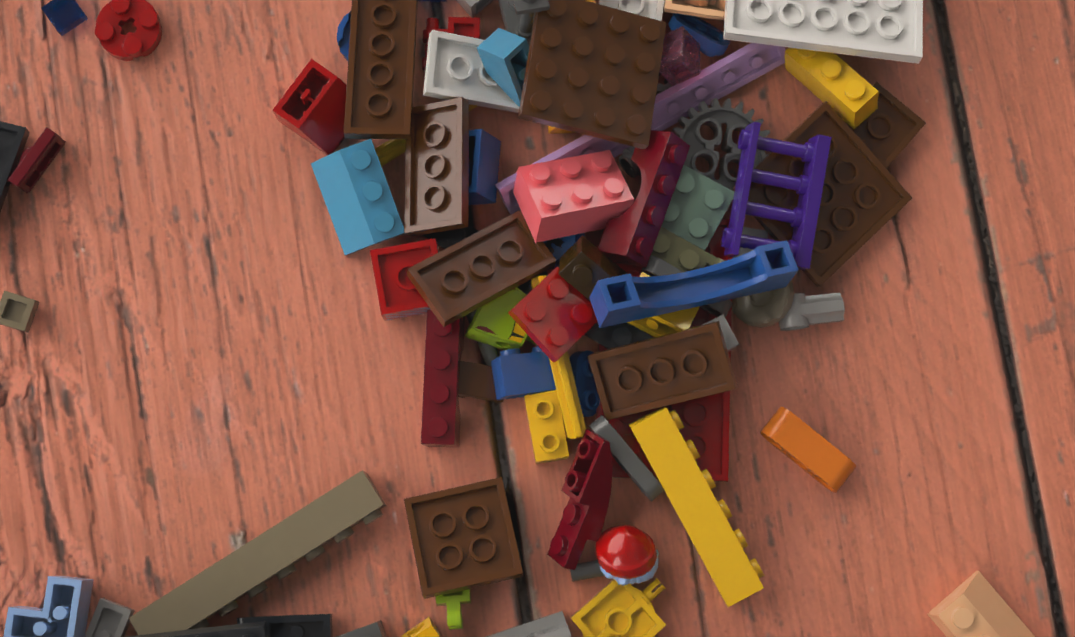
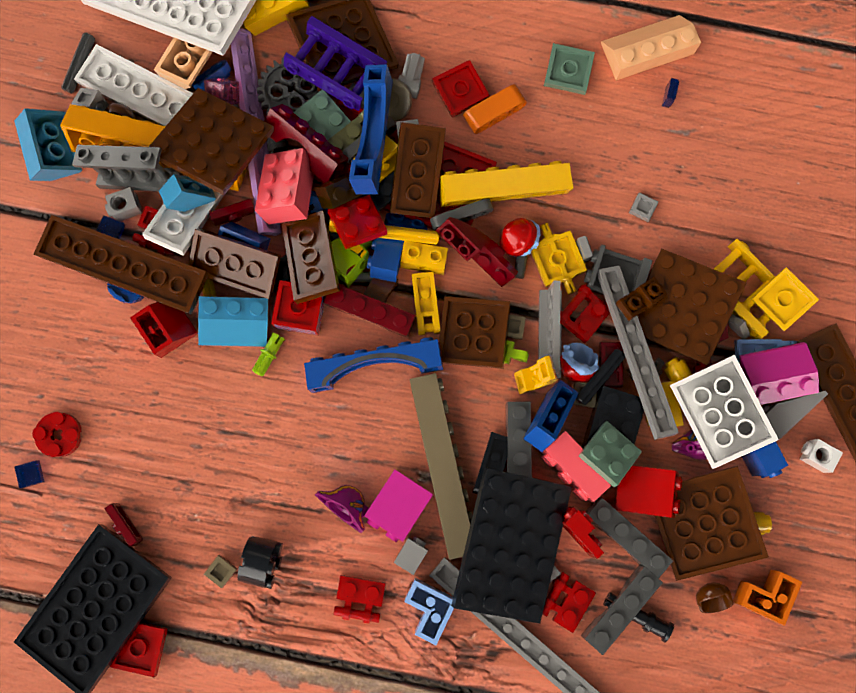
camera: 70 degrees left, 0 degrees up
(43, 359) = (260, 562): none -> black brick
(50, 511) = (359, 591): none -> red plate
(120, 563) = (411, 555): none -> light grey brick
(162, 448) = (347, 504): none -> magenta hat
(182, 520) = (398, 506): none -> dark pink panel
(330, 349) = (324, 373): none -> blue arch
(332, 262) = (268, 354): none -> lime axle
(484, 453) = (425, 302): none -> yellow plate
(494, 595) = (516, 327): none -> dark tan plate
(512, 137) = (233, 212): none -> dark red plate
(820, 388) = (460, 88): none -> red plate
(913, 537) = (569, 69): none -> sand green plate

